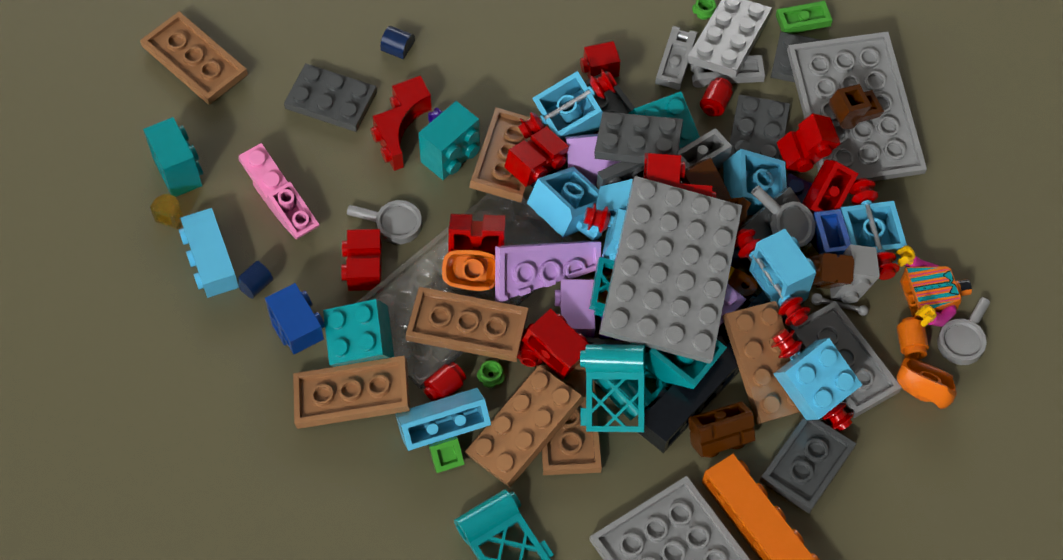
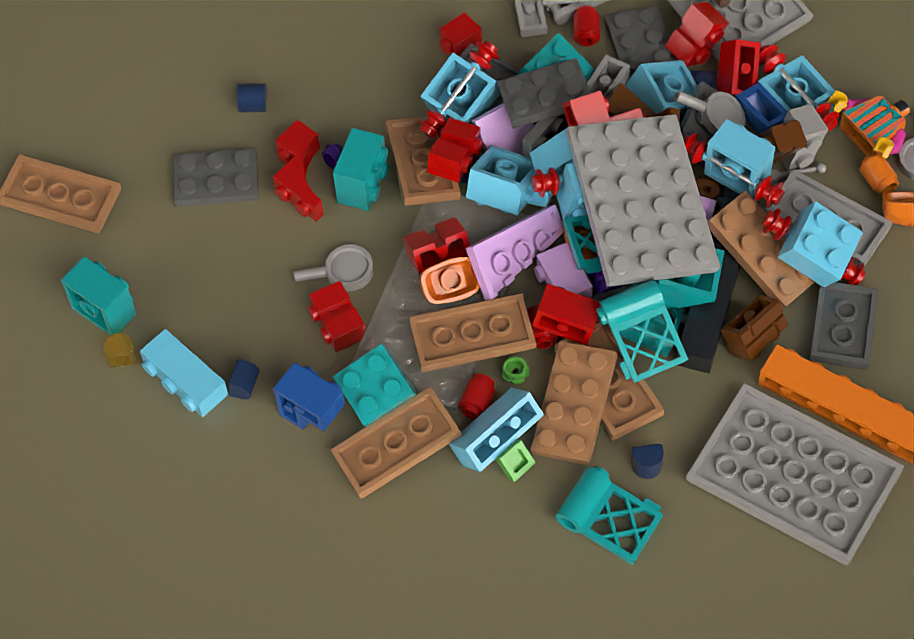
camera: 20 degrees left, 0 degrees up
(278, 192) = (219, 290): bright pink slope -> none
(563, 507) = (647, 460): none -> dark blue brick

